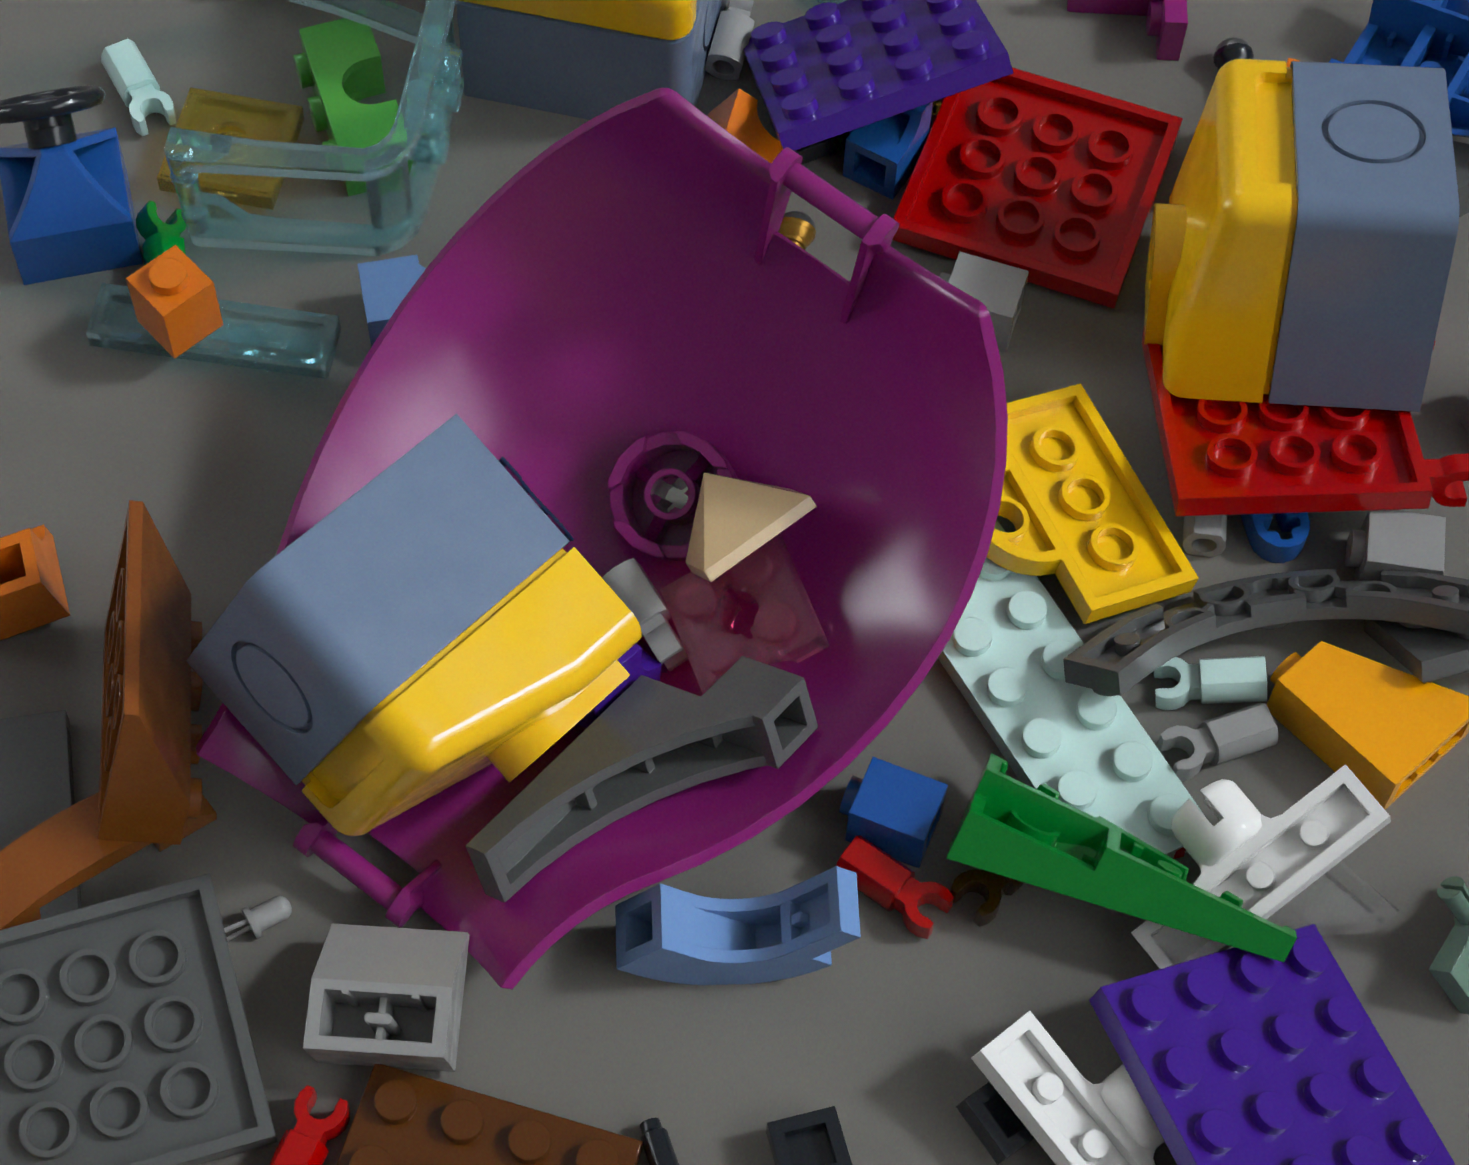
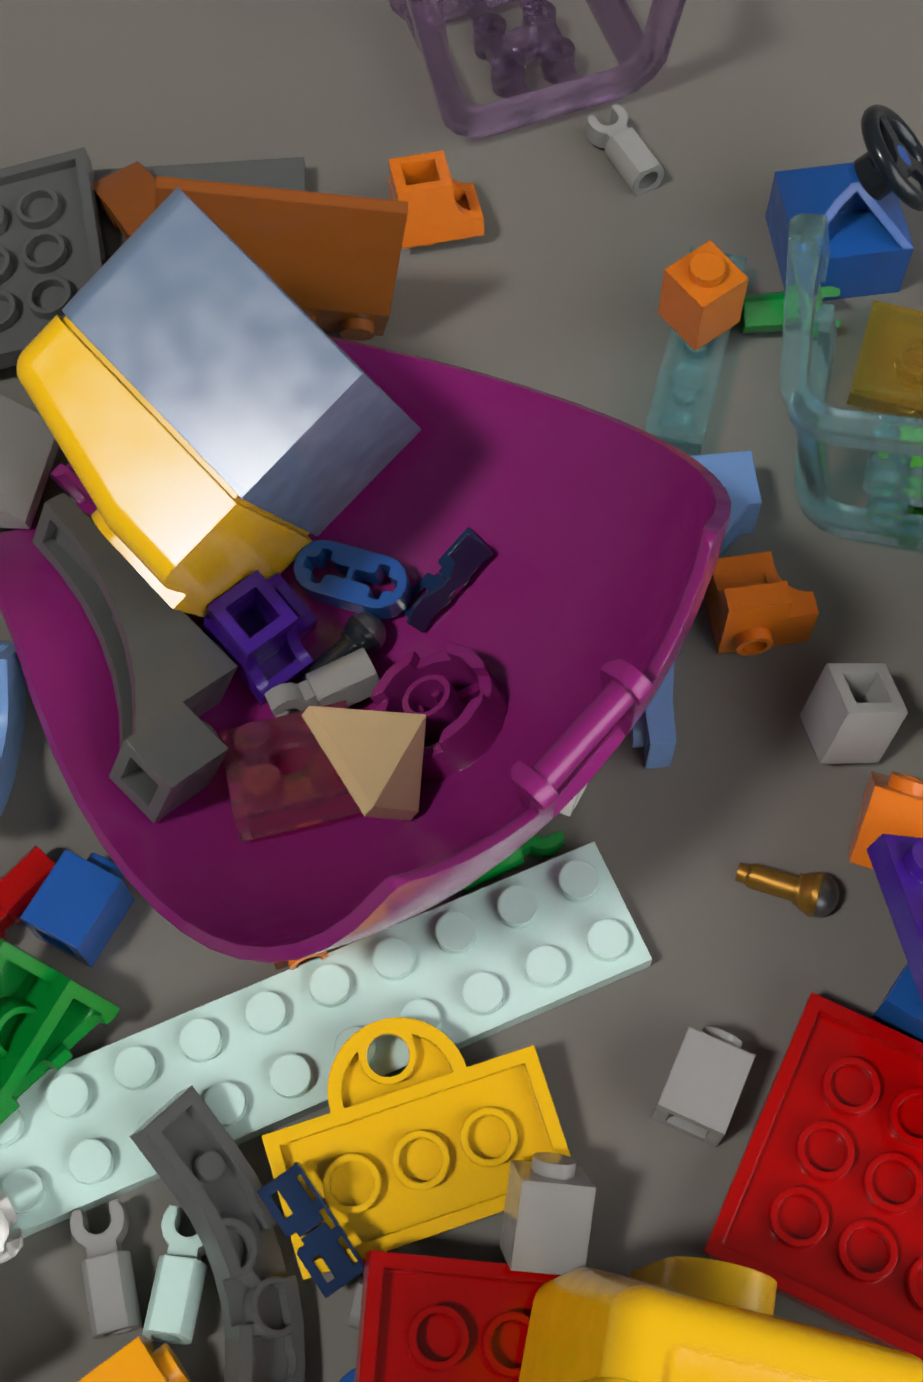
camera: 100 degrees right, 5 degrees up
(1118, 391) = (547, 1215): none -> light grey brick
(1158, 569) = (321, 1239): none -> dark blue piece

